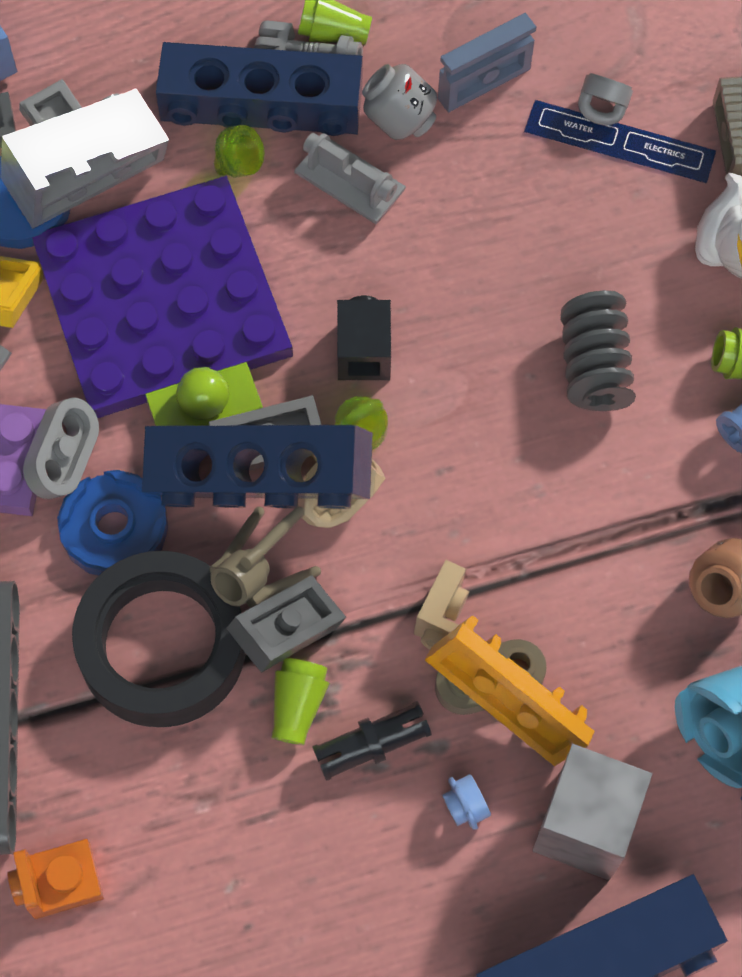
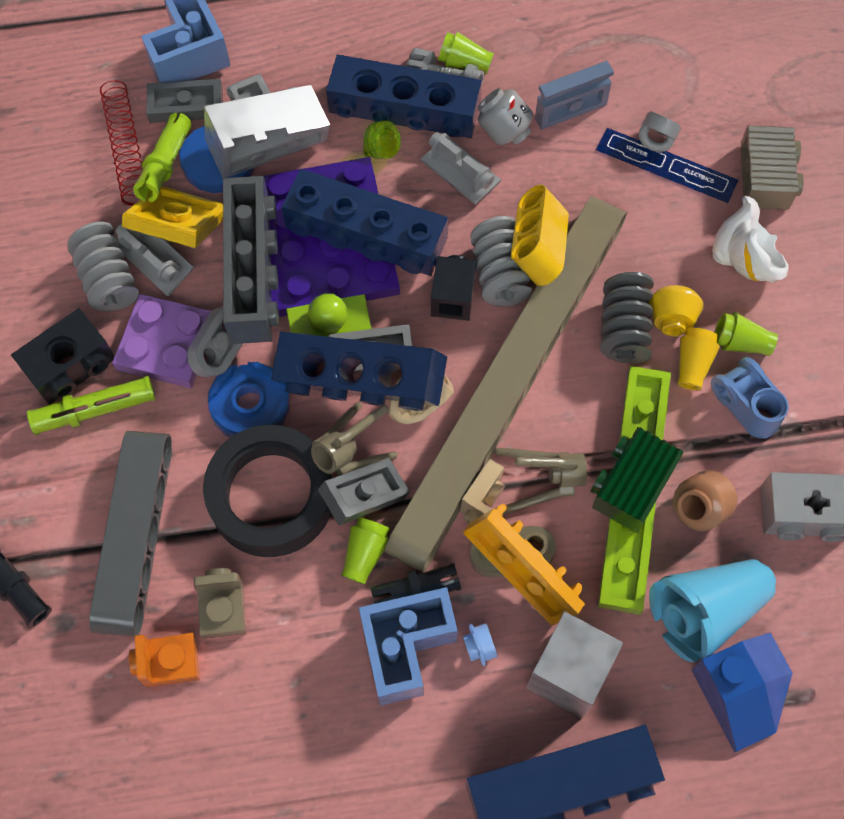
camera: 10 degrees right, 0 degrees up
(87, 336) = (247, 260): none -> dark grey brick
(117, 796) = (220, 603): none -> dark tan bracket
(235, 266) = (365, 222): none -> dark blue brick
(358, 800) = (400, 629): none -> medium blue brick
(367, 414) = (447, 344): clear neon green tile -> none
(420, 297) = (499, 276): none -> light grey piece
(450, 460) = (503, 389): none -> dark tan beam
(469, 256) = (540, 235): none -> yellow beam
(540, 560) = (563, 469): none -> dark tan plant
(637, 577) = (626, 551): none -> lime plate
(639, 561) = (636, 479): none -> dark green brick
(658, 333) = (675, 309): none -> yellow cone
(693, 392) = (696, 356): none -> yellow cone

